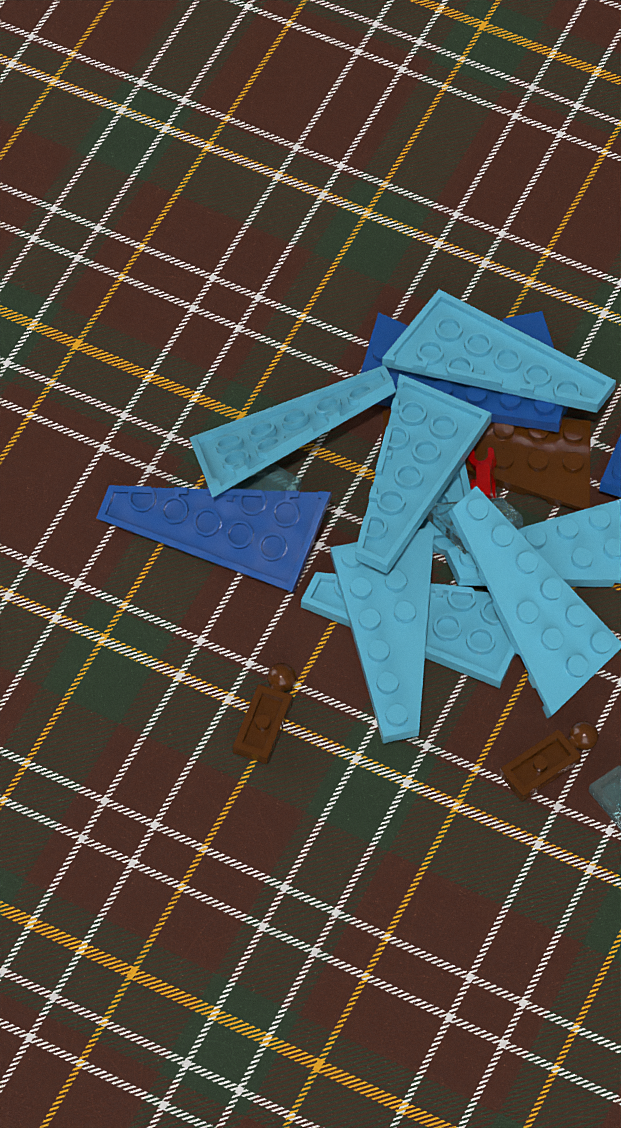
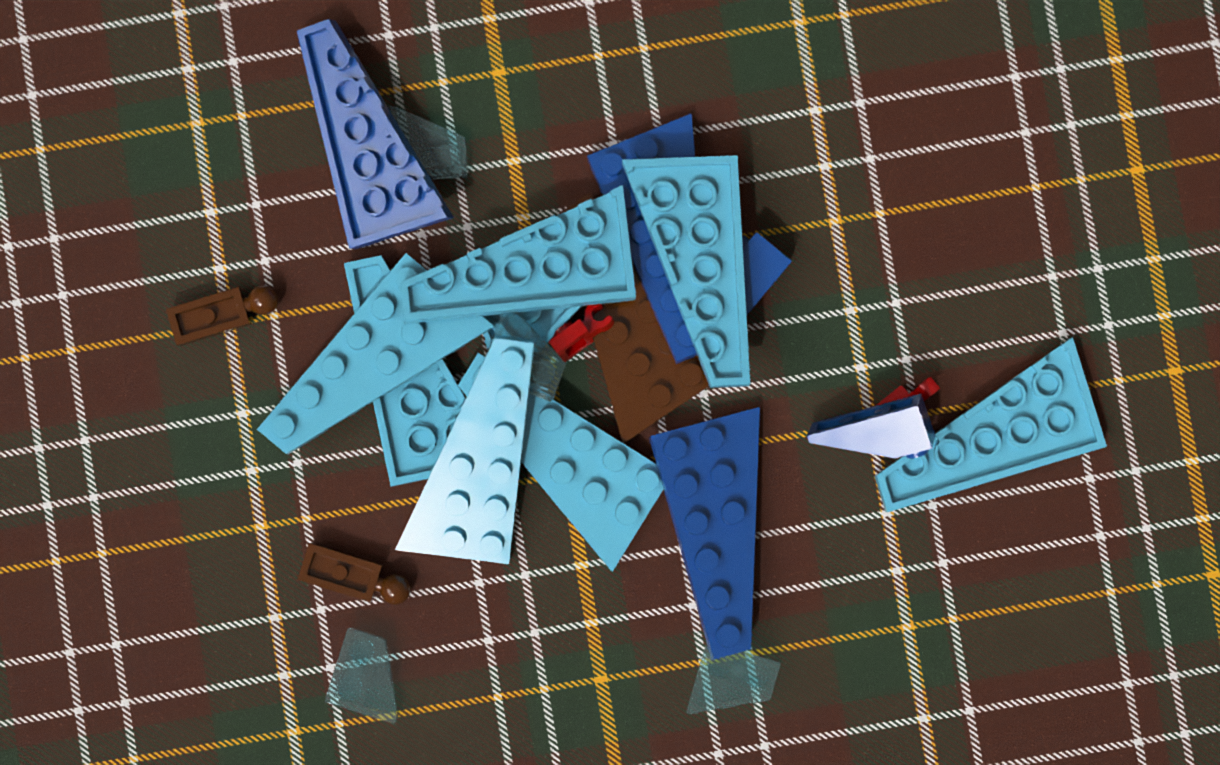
camera: 55 degrees right, 25 degrees up
(256, 441) = (471, 114): medium azure wing -> none

